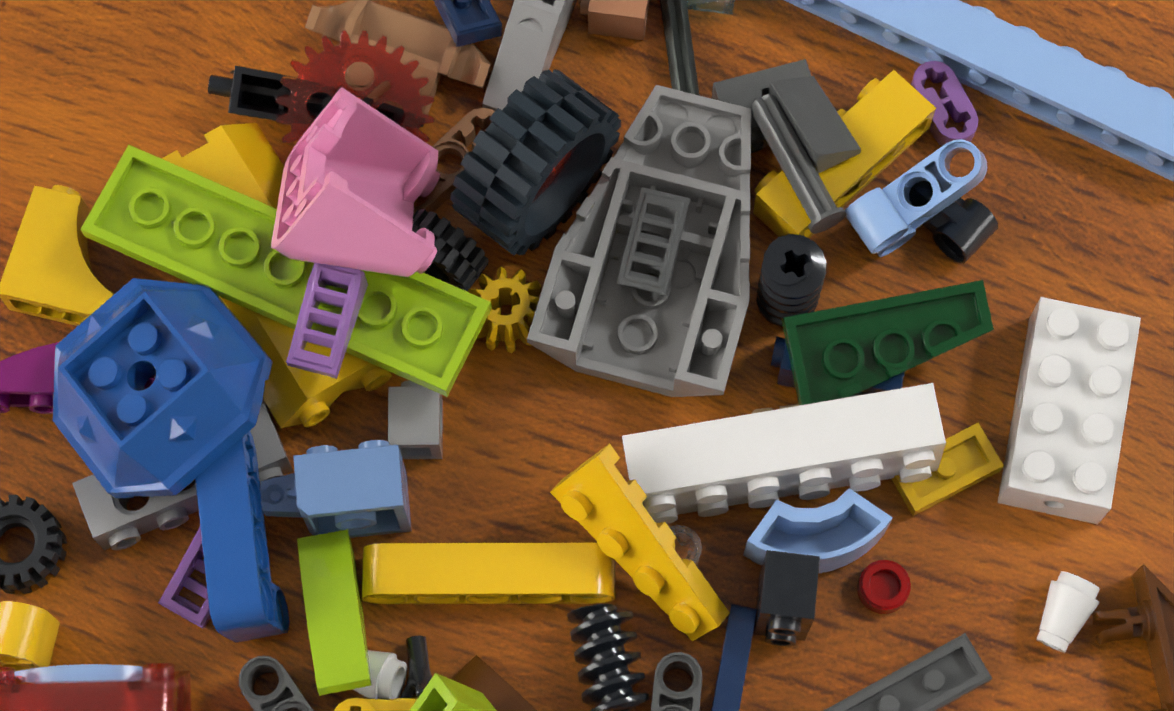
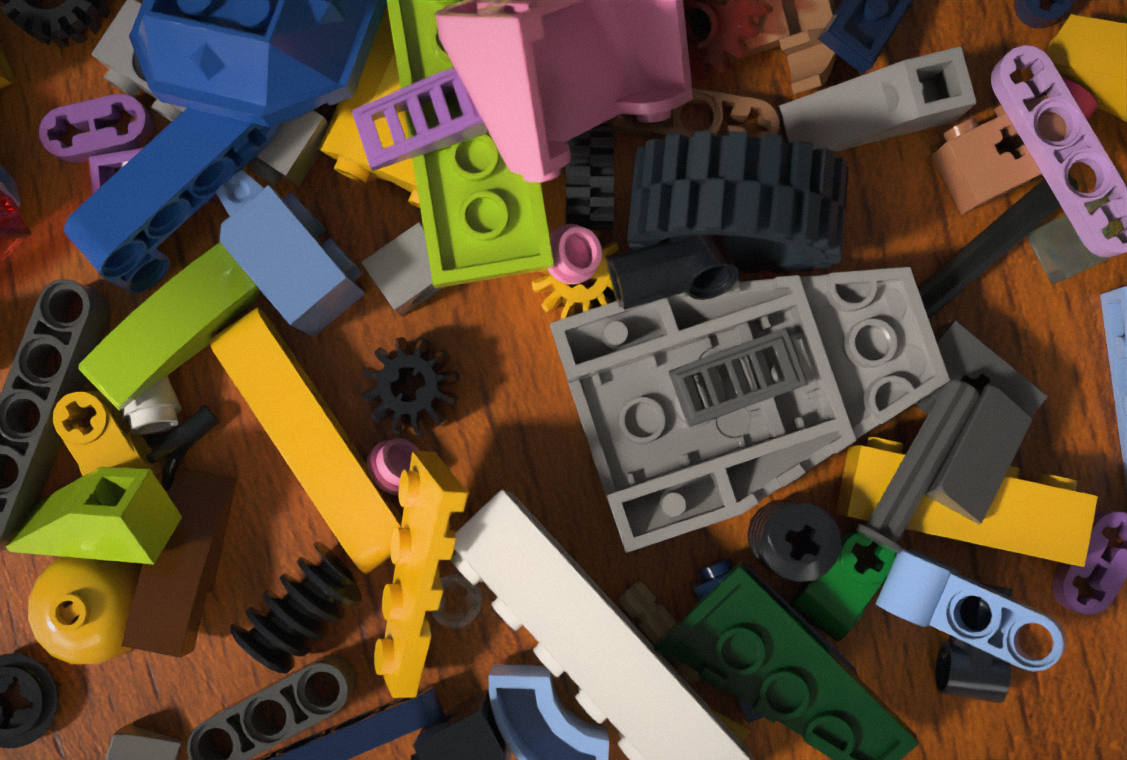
camera: 60 degrees right, 15 degrees up
(130, 579) = (93, 116): none -> medium lavender beam
(486, 460) = (395, 375): none -> black gear
(492, 286) = (574, 253): none -> bright pink plate
(548, 227) = (679, 265): none -> black piece
(550, 525) = (388, 461): none -> bright pink plate
(848, 275) = (843, 593): none -> green piece

